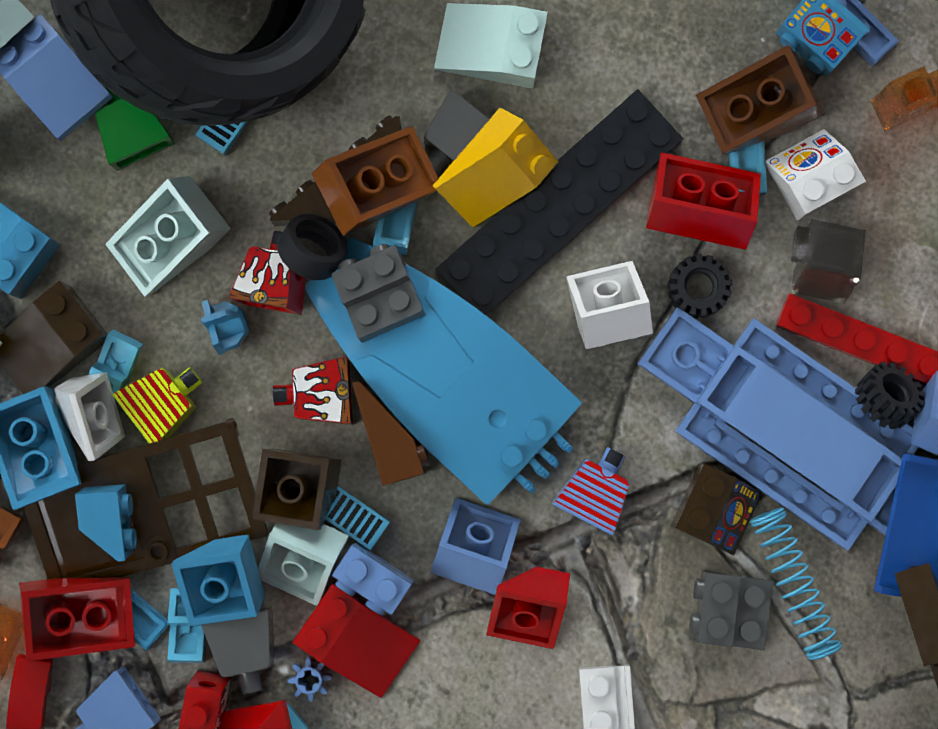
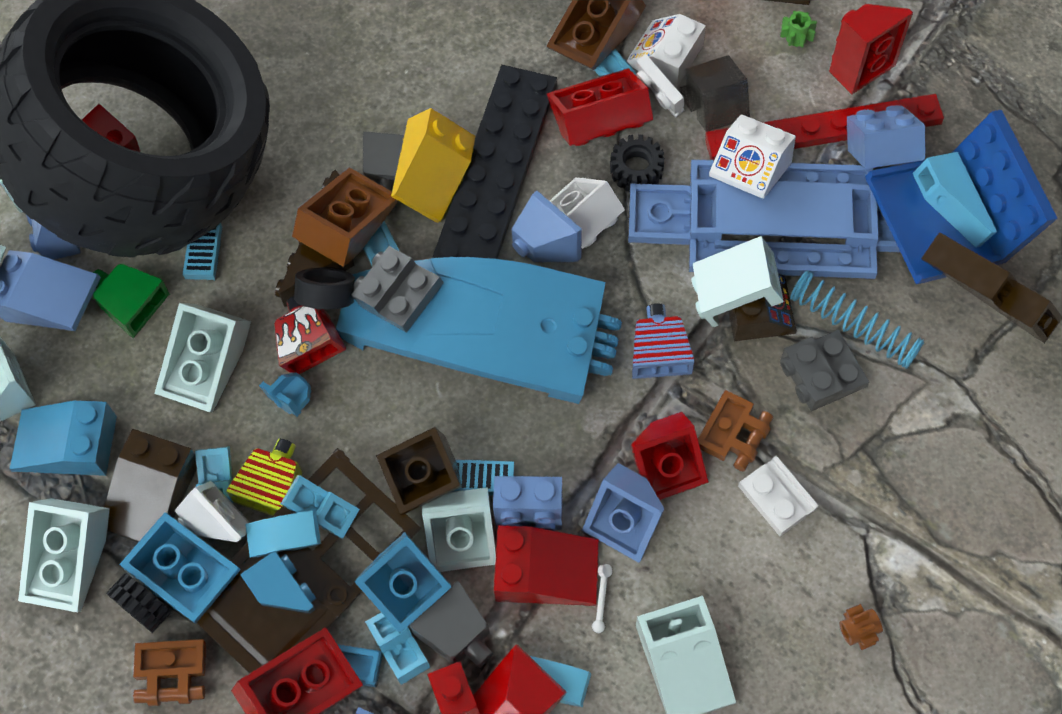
camera: 30 degrees left, 20 degrees down
(135, 475) = (283, 533): none -> medium azure slope
(185, 466) = (332, 511): none -> medium azure slope
(303, 685) = (529, 611): medium blue gear -> none
(319, 392) = (396, 398): torso -> none
(392, 446) = (473, 391): reddish brown slope -> none
(407, 674) = (604, 571): none -> white hinge
(457, 636) = (624, 512): none -> medium blue slope
(475, 546) = (594, 439): medium blue slope -> none
(491, 42) = (375, 91): light aqua slope -> none
(558, 312) = (546, 233): none -> medium blue slope
(603, 608) = (724, 426): none -> dark orange plate
(705, 481) = (736, 279): none -> light aqua panel
(771, 204) = (663, 89): none -> white plate
(808, 363) = (753, 156): none -> white slope
(890, 395) = (826, 151): black tyre -> none

